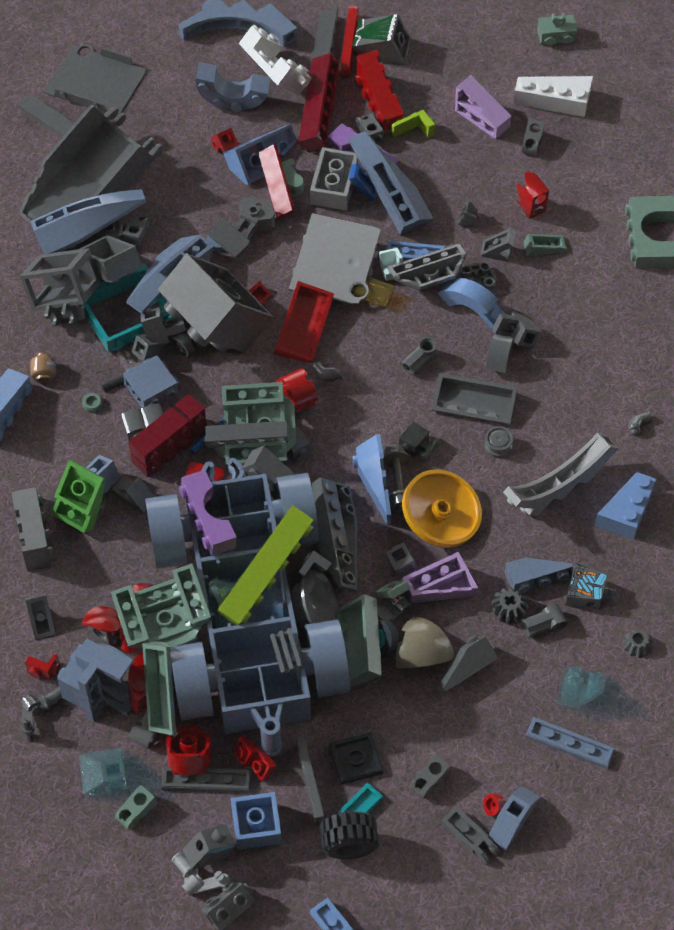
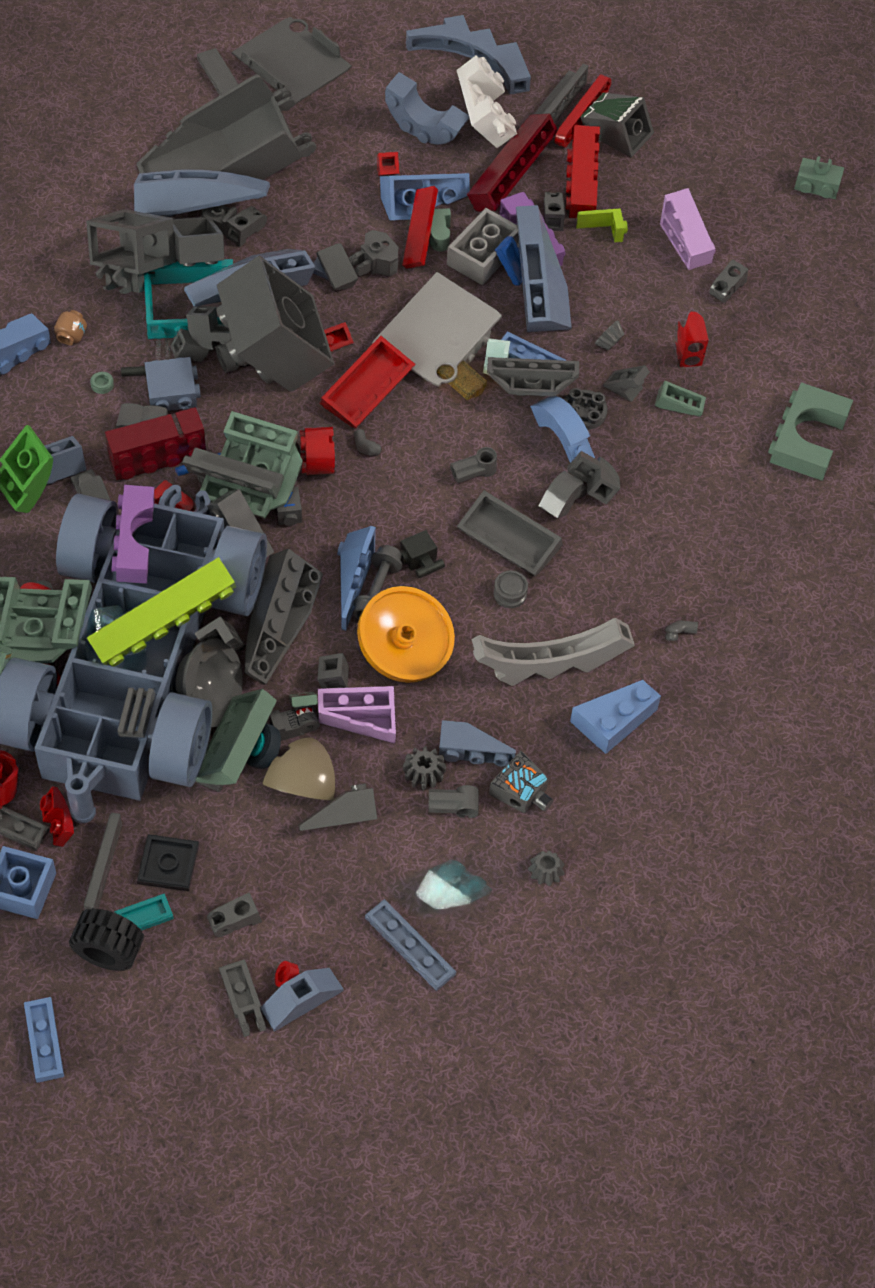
camera: 20 degrees right, 0 degrees up
(555, 93) = (779, 244): white wedge -> none

